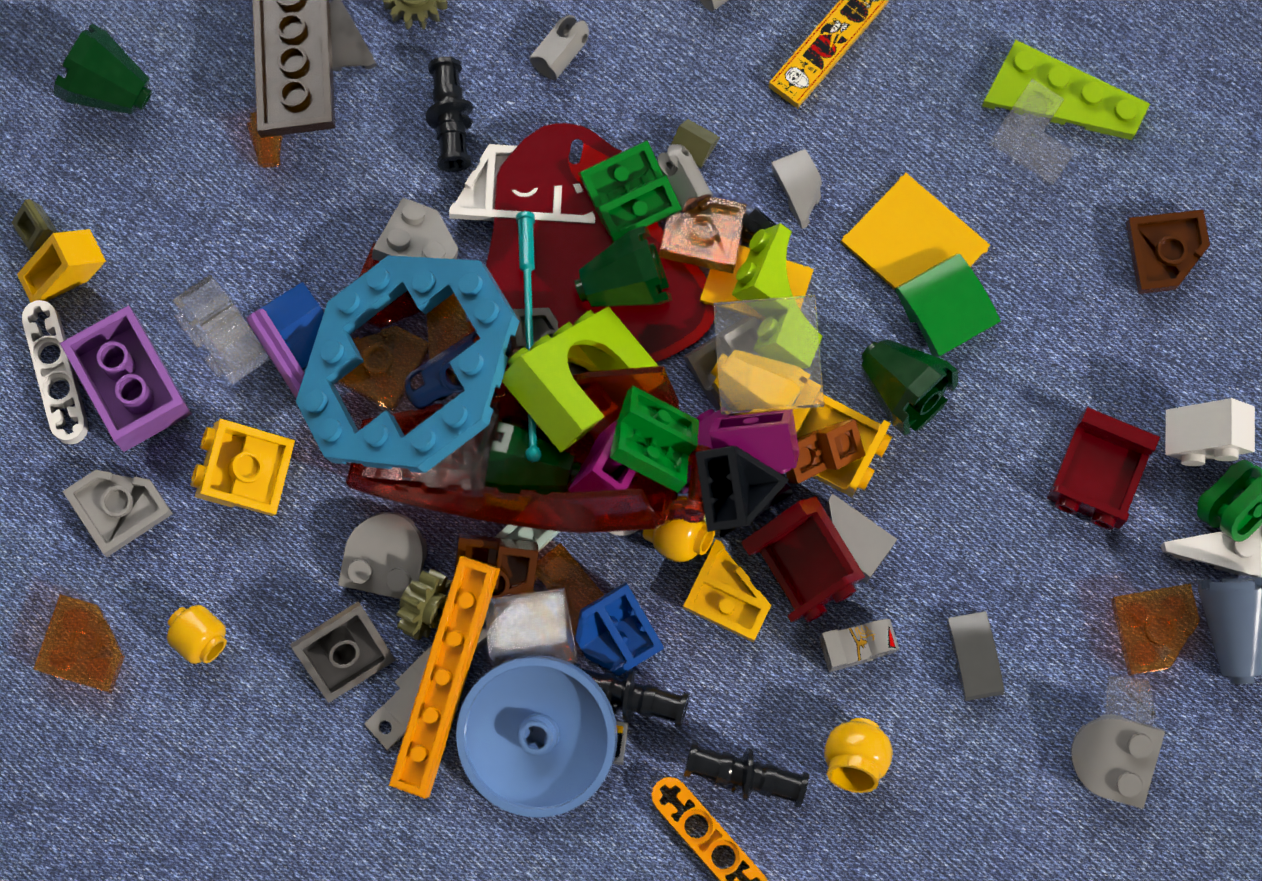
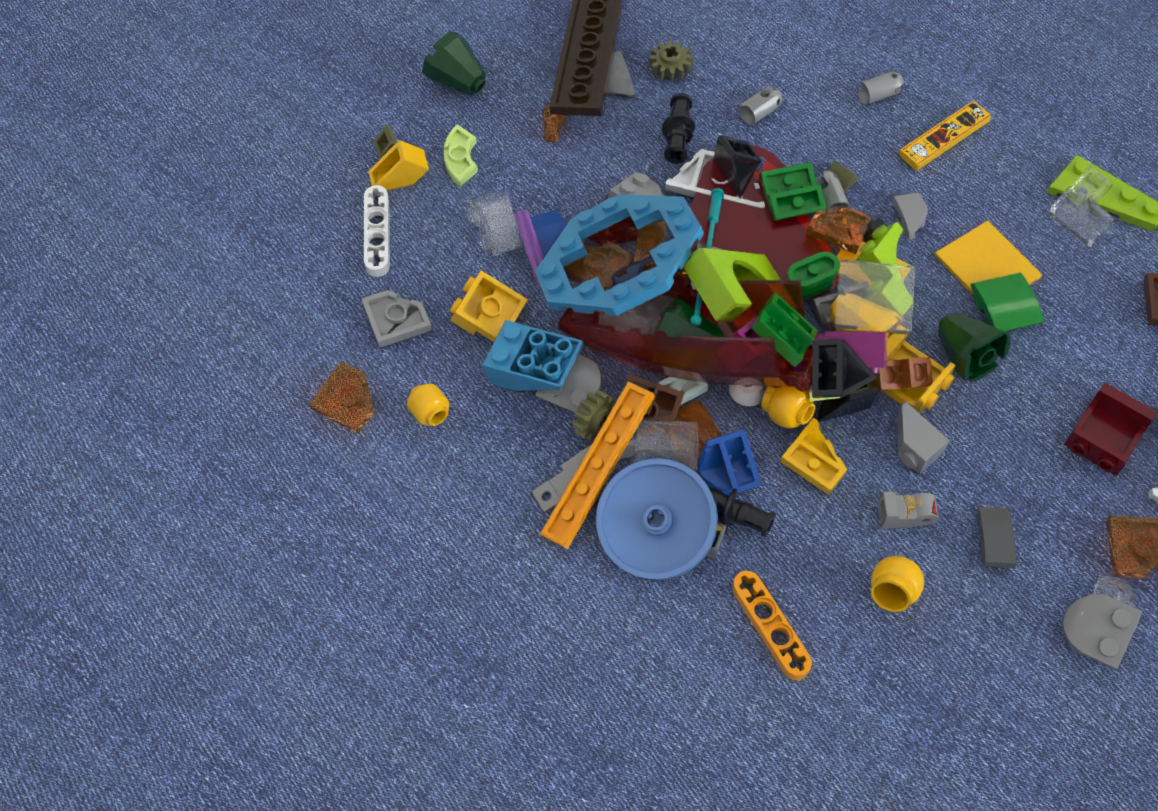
camera: 15 degrees right, 15 degrees down
(125, 378) = (423, 238): medium lavender brick -> none
(139, 219) = (457, 155): none -> yellowish green tile
(321, 538) = (530, 358): none -> dark azure slope
(342, 652) = (528, 435): flat silver slope -> none
(545, 161) = (736, 162): none -> black slope
(625, 274) = (780, 236): dark green cone -> none
(678, 327) = (815, 273): none -> green brick
(746, 774) = (809, 580): black piece -> none
(806, 558) = (878, 440): dark red panel -> none

